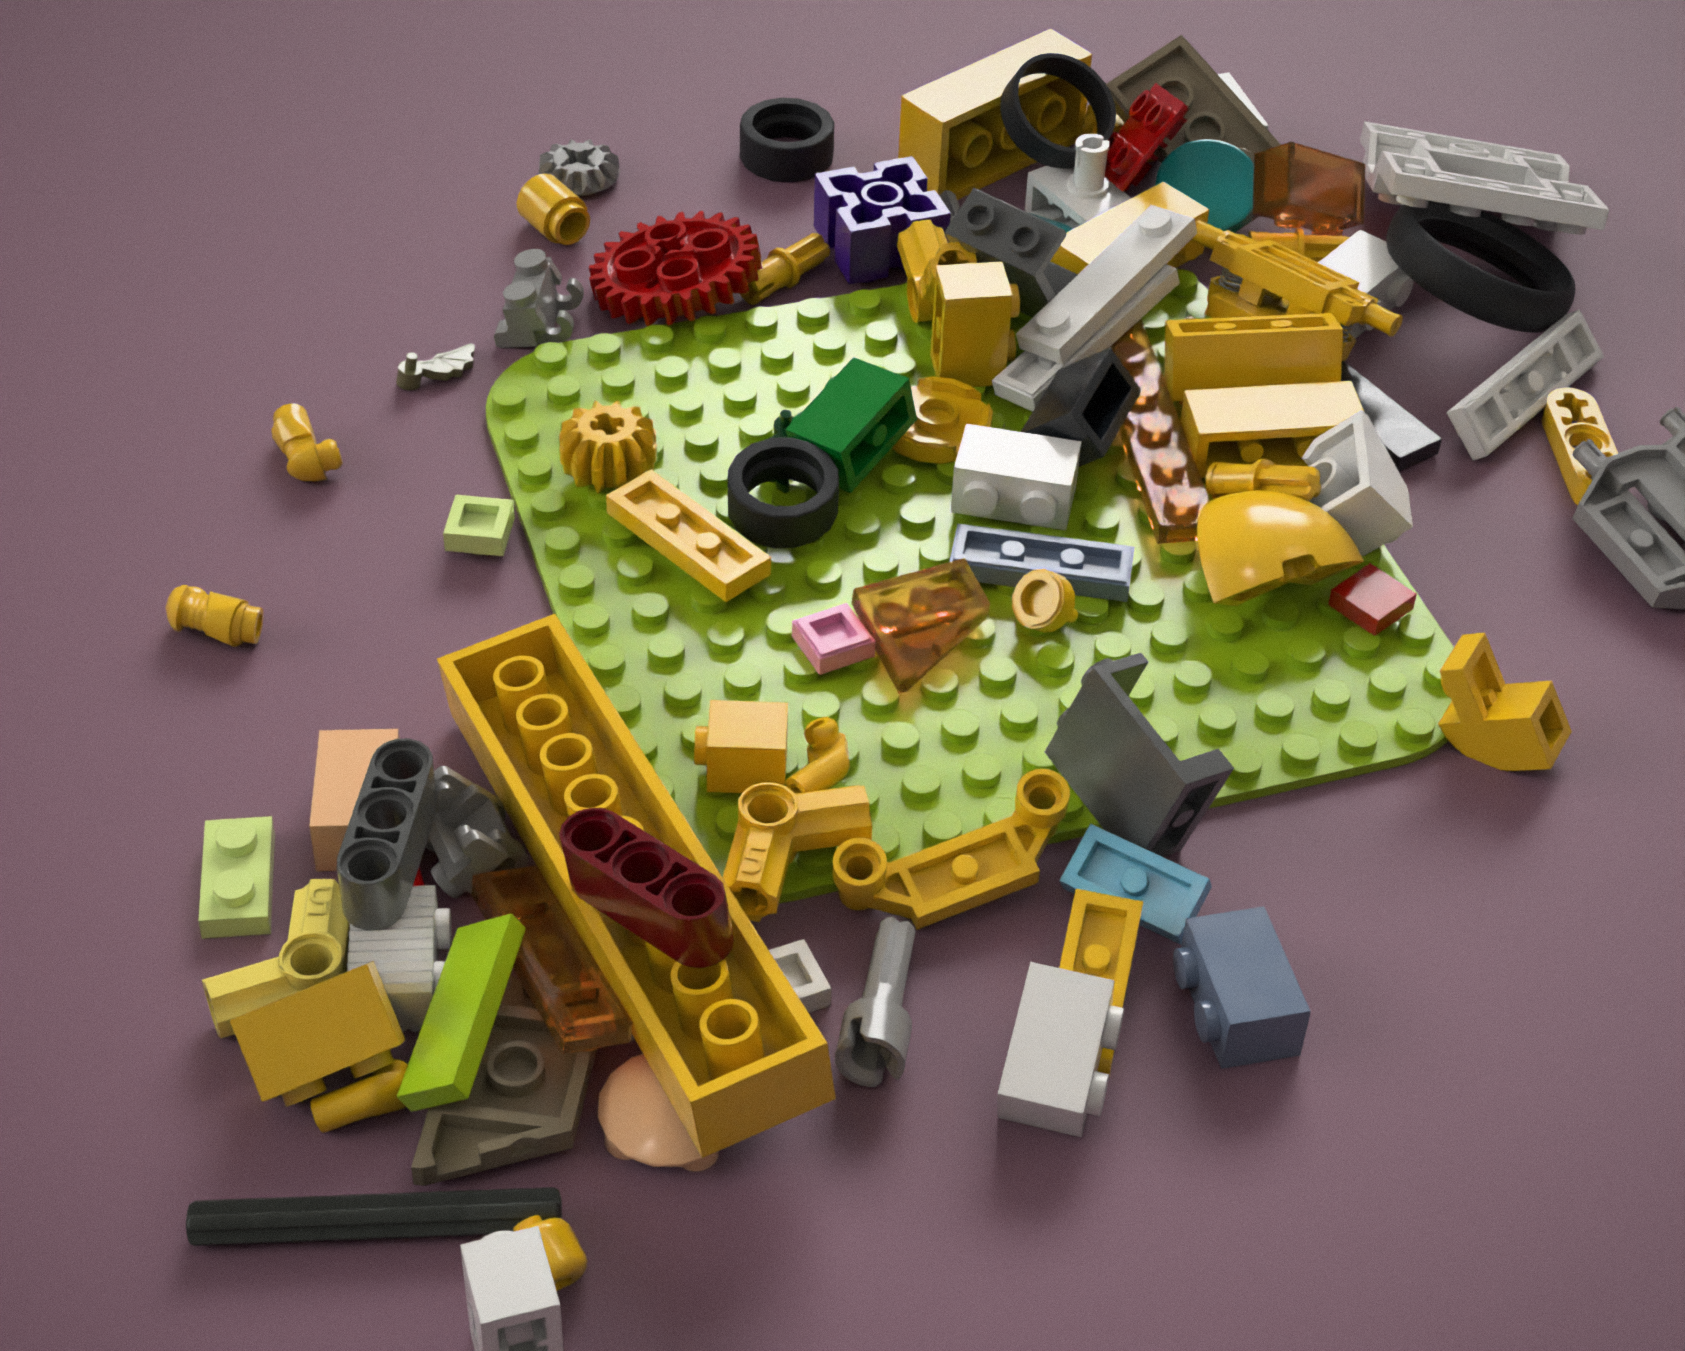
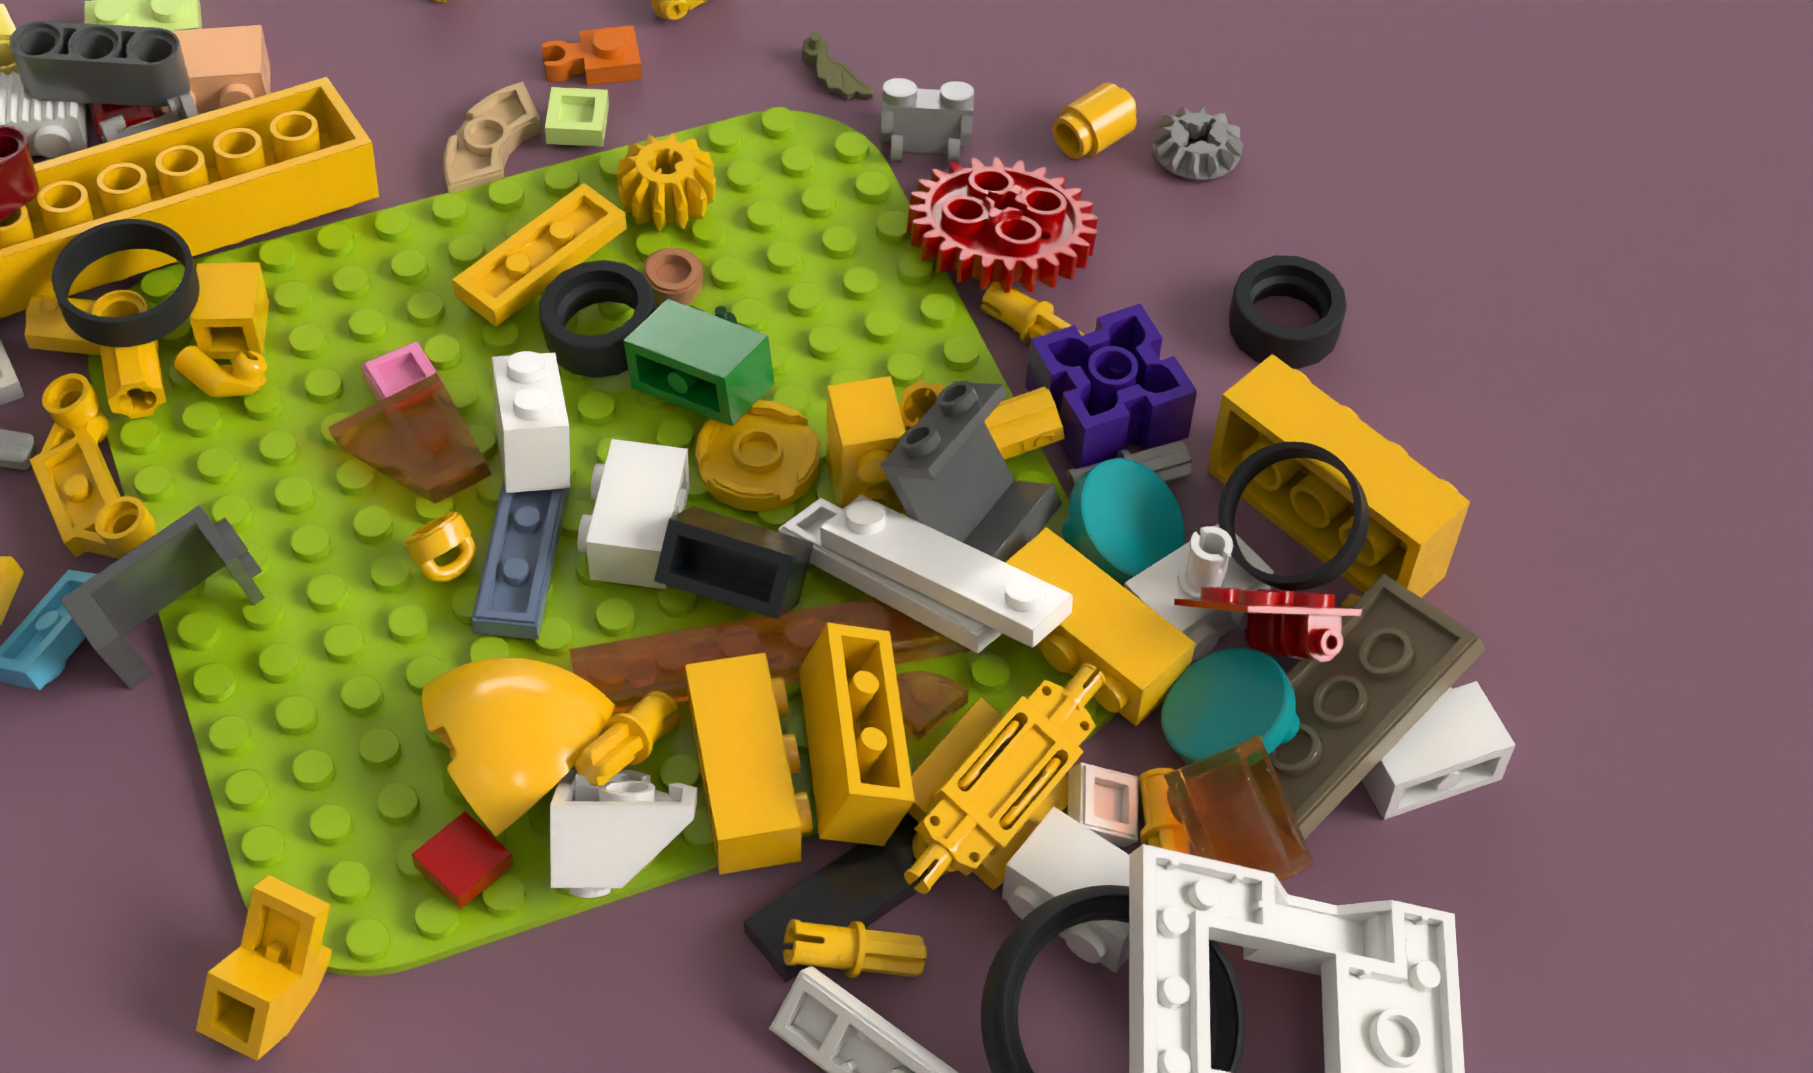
camera: 85 degrees right, 10 degrees up
(382, 516) = (602, 55): none -> orange plate
(482, 598) = (488, 137): none -> tan tile
(711, 459) = (674, 275): none -> nougat tile
(755, 733) = (115, 237): none -> black tyre
(925, 520) = (531, 422): none -> white brick
(1424, 399) = (854, 949): none -> yellow axle

